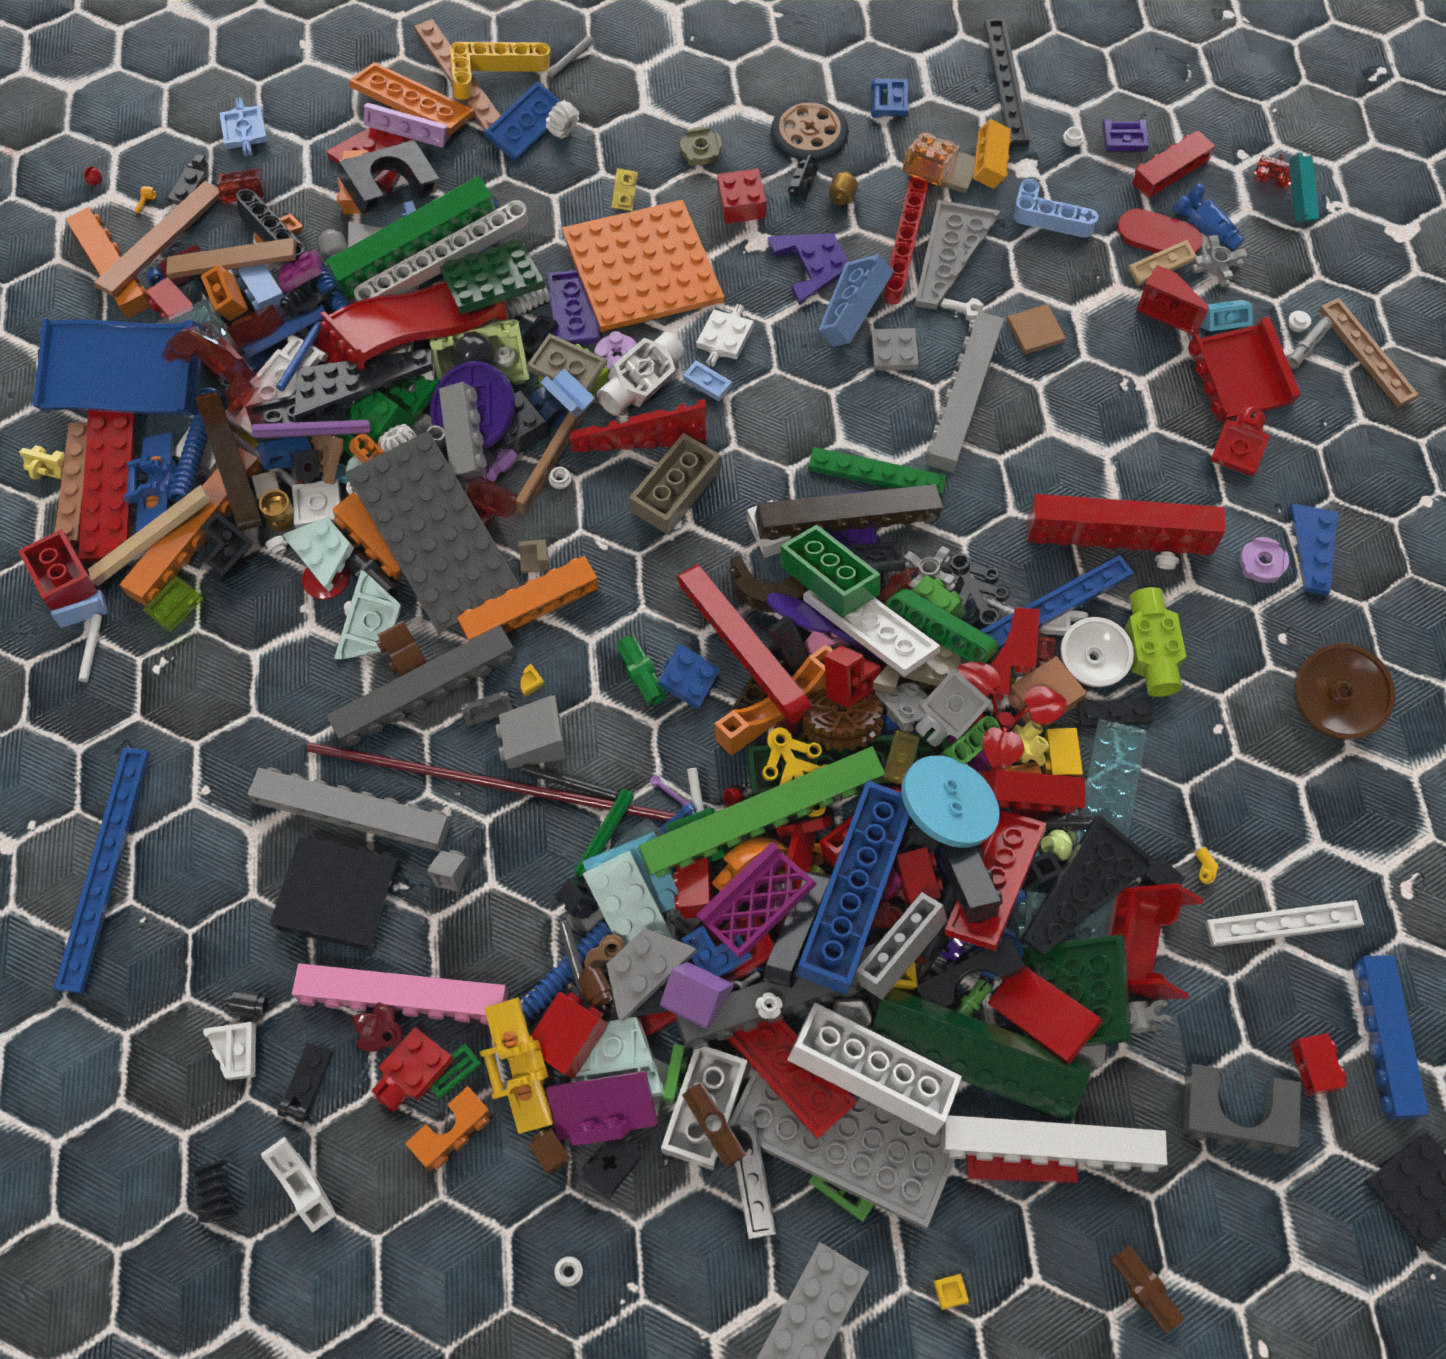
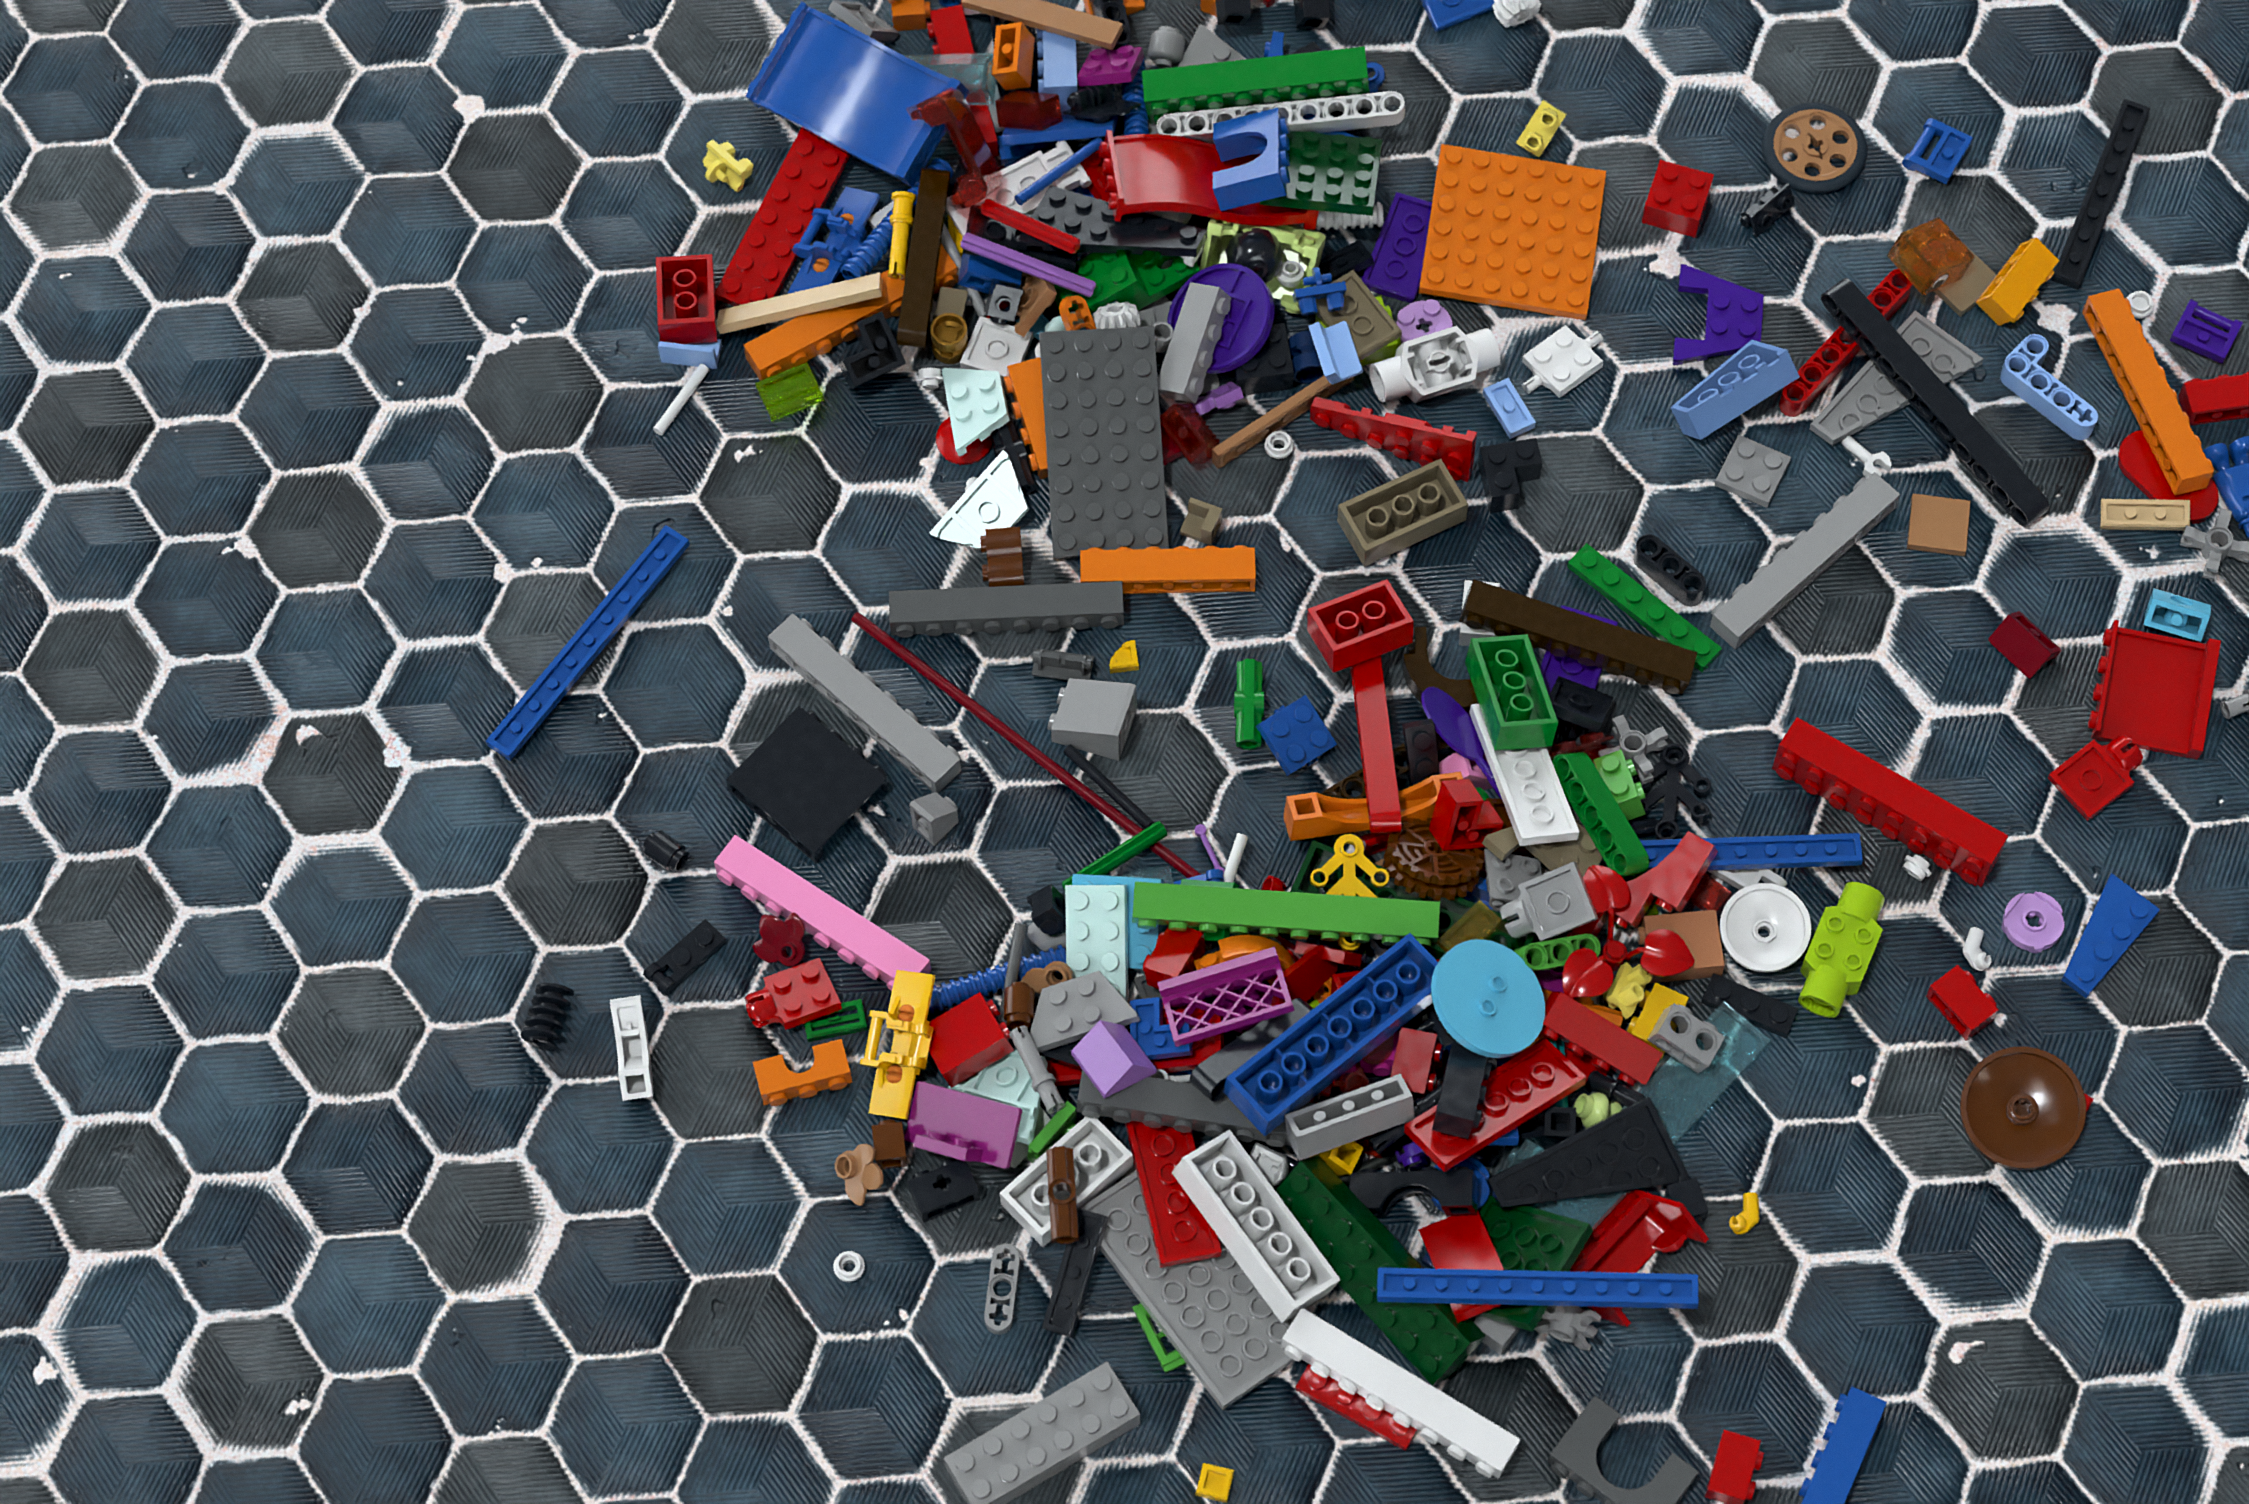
camera: 30 degrees right, 0 degrees up
(72, 483) = (747, 202): nougat plate -> none
(91, 314) = (863, 20): none -> light grey plate
(199, 442) = (901, 222): none -> yellow pin
(234, 1049) = (631, 889): white wing -> none
(299, 400) = (1030, 226): none -> red axle
(449, 297) = (1263, 177): none -> blue arch
(528, 363) = (1307, 296): none -> blue hips
(537, 1188) = (859, 1172): none -> medium nougat plate
(639, 1032) = (1042, 1080): none -> light grey pin
(685, 1205) = (991, 1309): none -> light grey beam
(694, 574) = (1360, 625): none -> red brick
(701, 156) = (1667, 125): olive plate -> none
(729, 421) = (1504, 467): none -> black brick
(764, 1011) = (1175, 1114): white plate -> none
(843, 188) = (1807, 244): pearl gold head -> none
(872, 431) = (1673, 583): none -> black beam
(971, 1003) = (1410, 1219): bright green pin -> none
(989, 249) = (1935, 402): none -> black beam
(1095, 758) = (1683, 1045): none -> light grey brick
(1117, 185) = (2148, 392): none -> orange brick
(1118, 1007) = (1537, 1288): none -> blue plate
(1139, 381) = (2023, 644): none -> dark red panel
(1172, 301) = (2116, 564): red slope -> none
(1238, 601) = (1972, 951): none -> white arm
(1255, 638) = (1962, 1002): none -> red brick
(1284, 923) = (1795, 1316): white tile -> none

